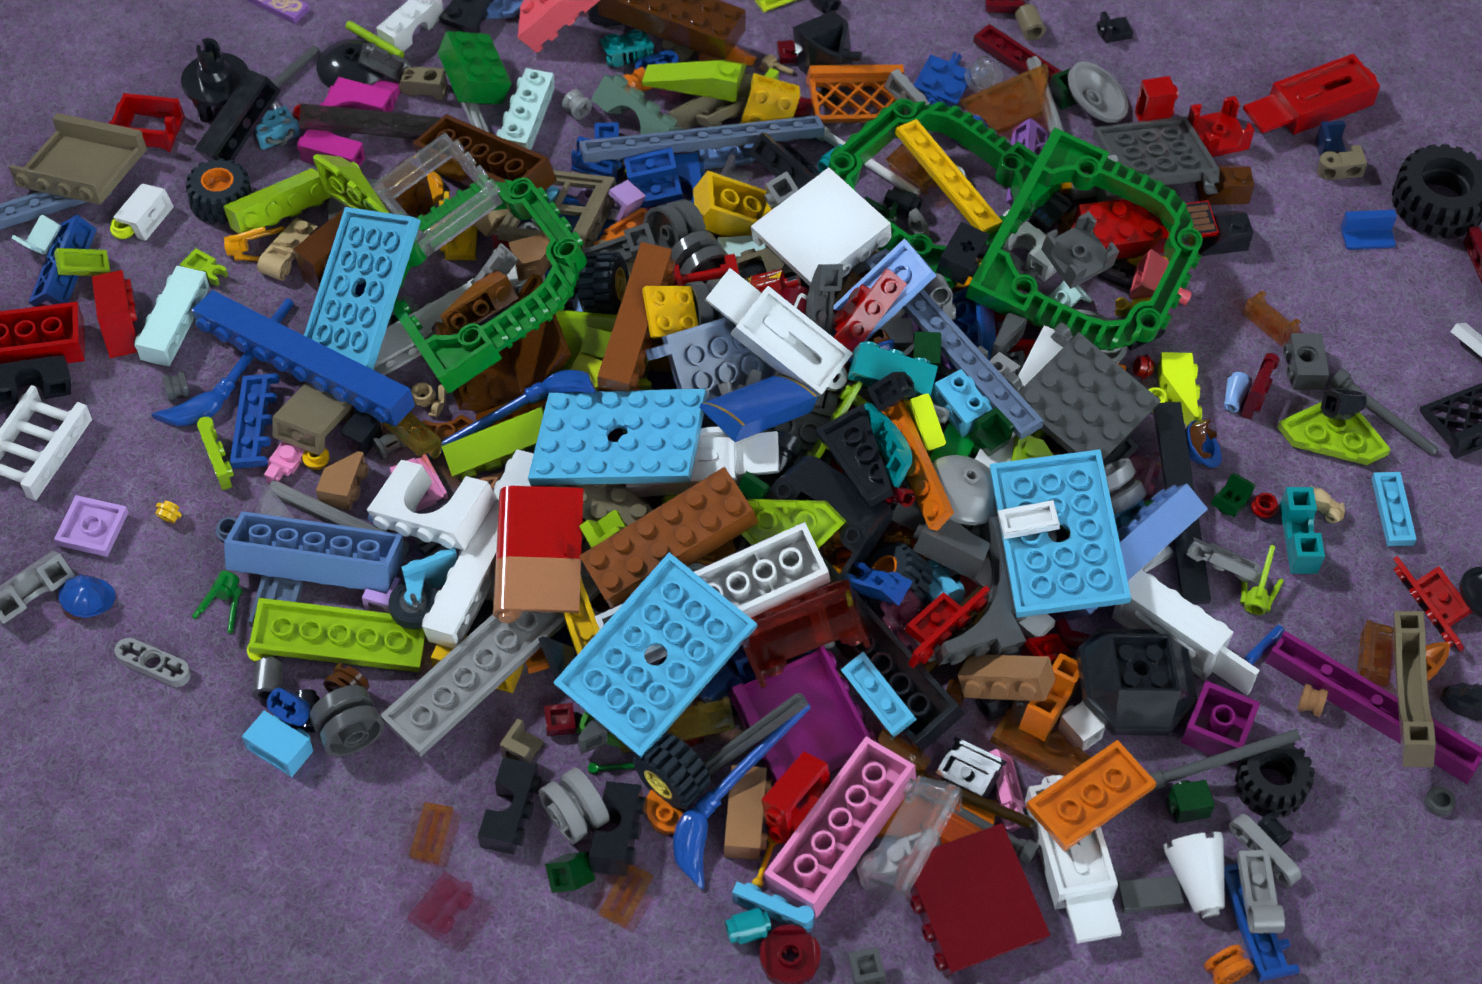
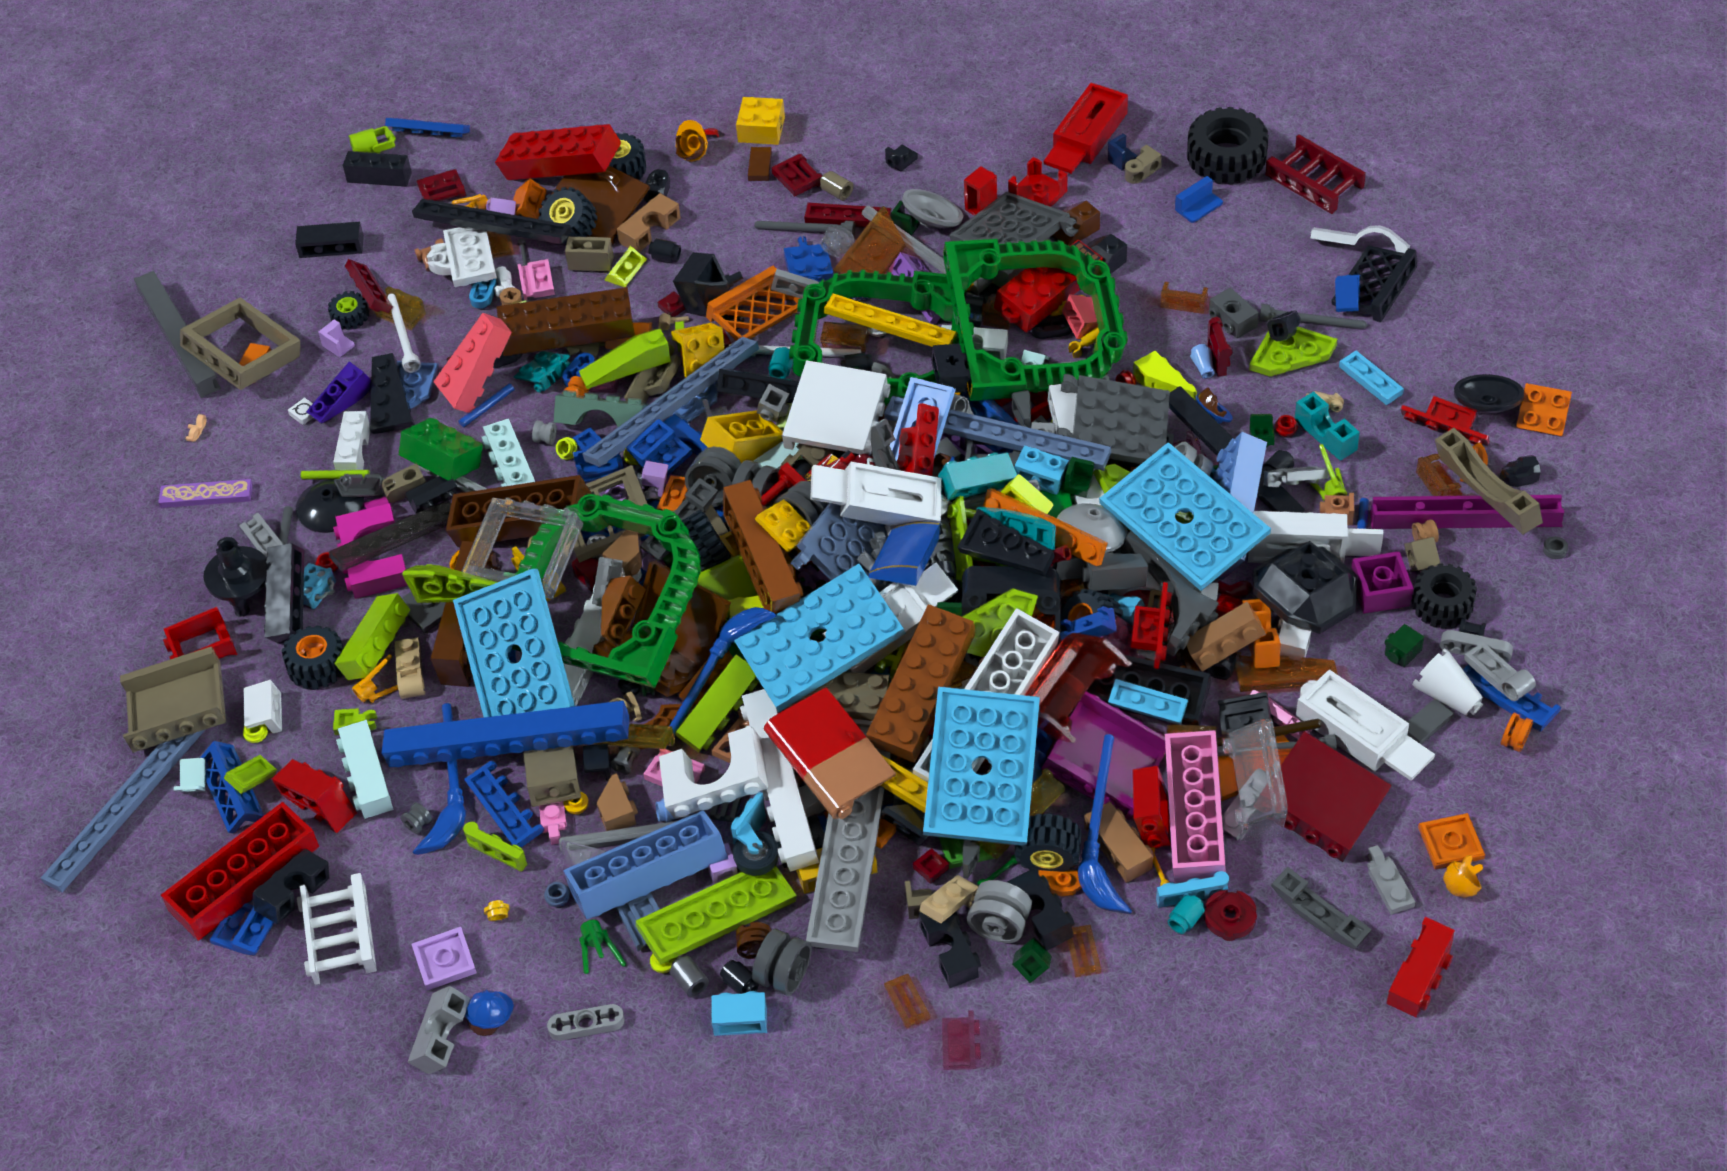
camera: 30 degrees left, 5 degrees down
(271, 58) = (260, 533): none -> light grey plate
(290, 703) = (728, 985): blue beam -> none
(435, 103) = (431, 493): none -> black bracket
(539, 761) = (949, 899): none -> tan plate
(553, 51) = (490, 402): none -> blue bar
(583, 128) = (563, 444): none -> neon yellow plate
(595, 341) = (736, 584): lime panel -> none
(604, 528) = (866, 706): lime panel -> none
(755, 733) = (1091, 774): dark grey axle -> none
(892, 390) = (991, 487): black bracket -> none
(928, 346) = (983, 445): dark green panel -> none
(1009, 68) = (807, 227): none -> dark grey piece
(1028, 519) = (1159, 518): white tile -> none
(1078, 252) = (1033, 321): dark grey panel -> none
(1090, 795) = (1345, 677): orange plate -> none
(1224, 537) = (1279, 460): none -> black brick
(1224, 758) = (1372, 644): dark grey bar -> none
(1244, 621) = (1339, 505): none -> nougat brick
(1287, 717) = (1422, 554): none -> dark tan brick
(1440, 408) = (1347, 293): none -> blue slope

